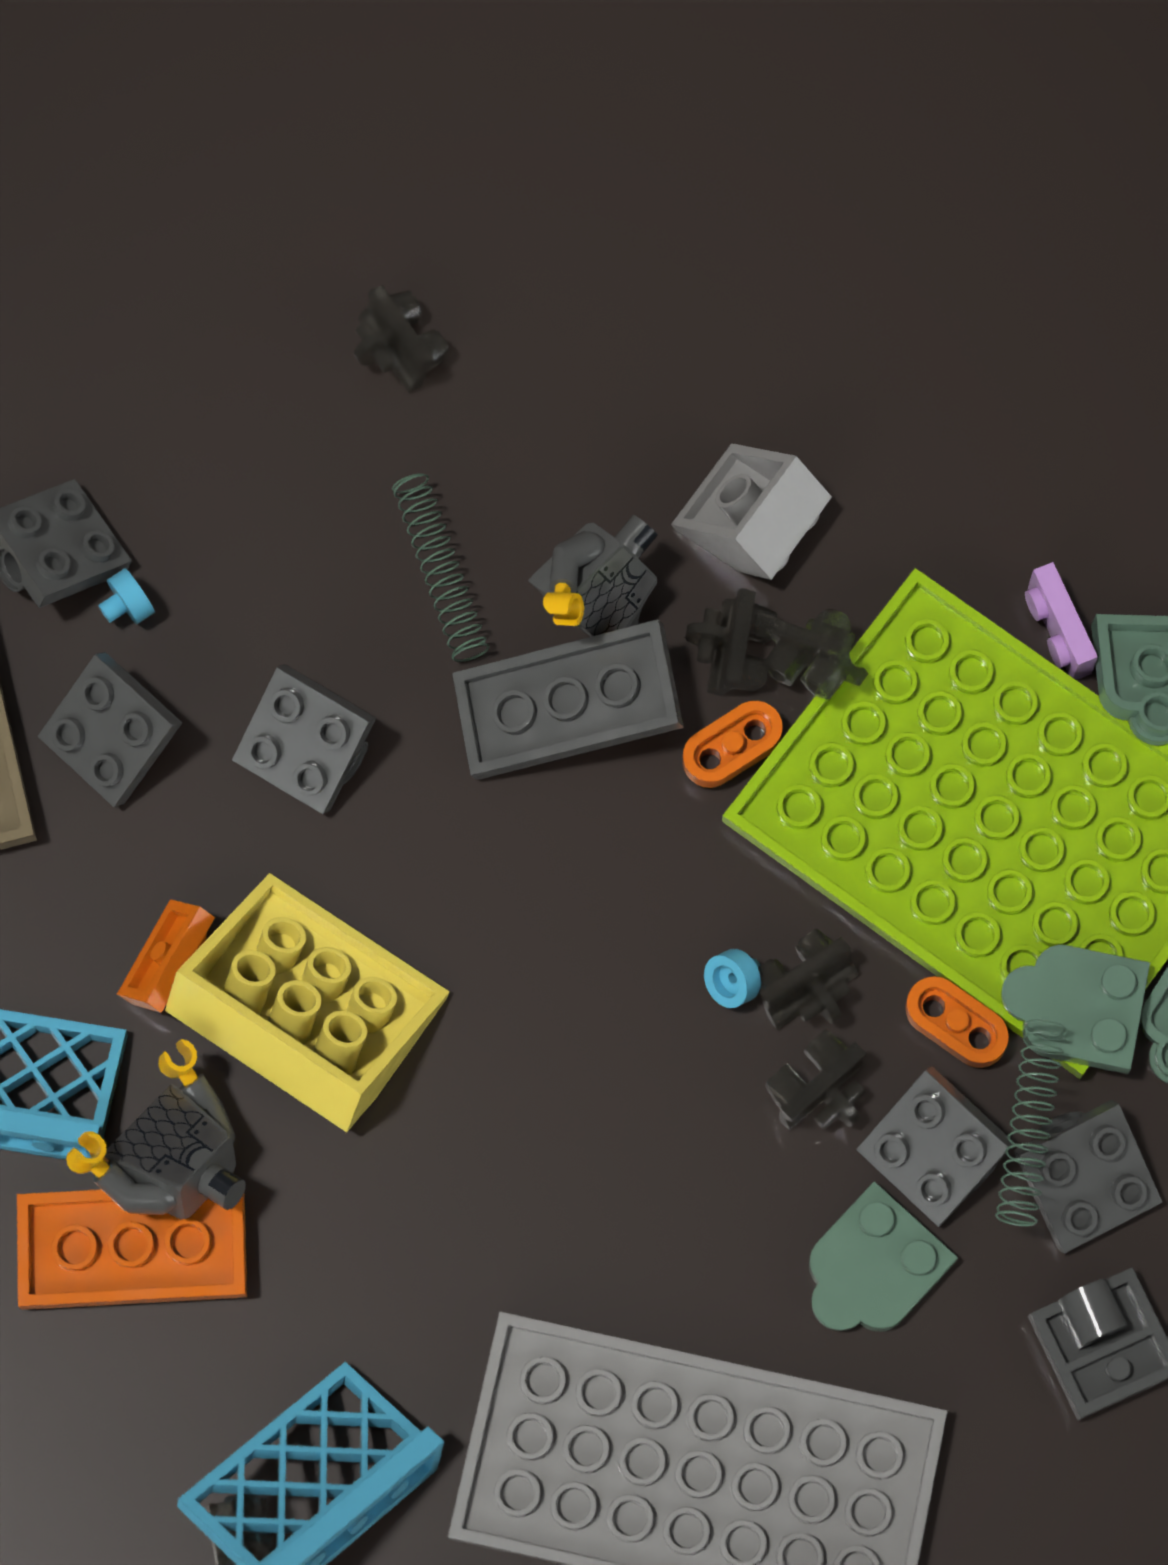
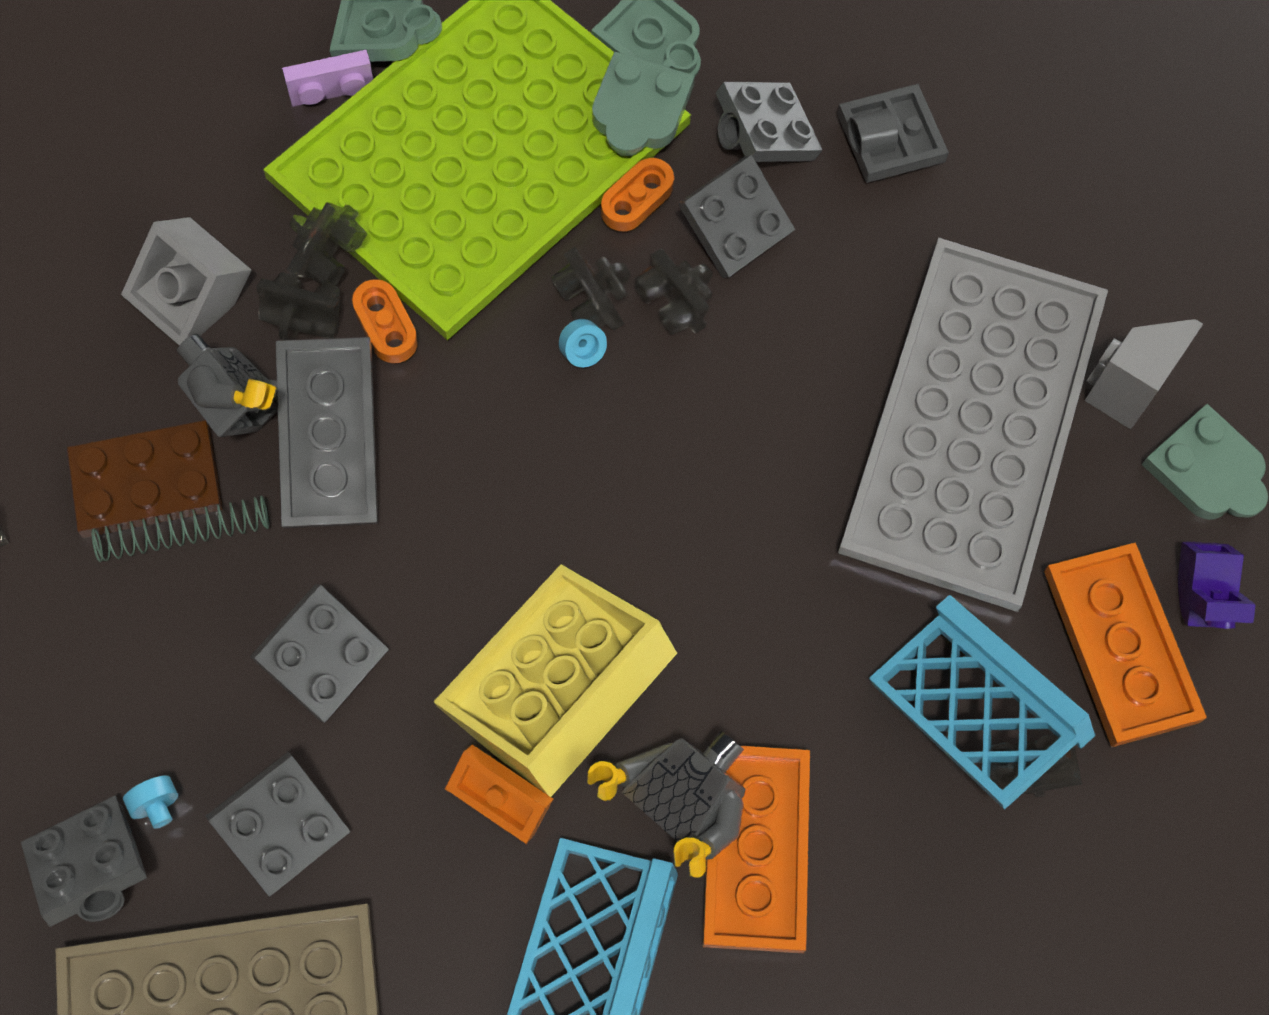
camera: 90 degrees left, 5 degrees down
(496, 513) = (144, 478): none -> reddish brown plate
(874, 1265) = (818, 278): sand green plate -> none
(1022, 1131) = (810, 149): sand green piece -> none

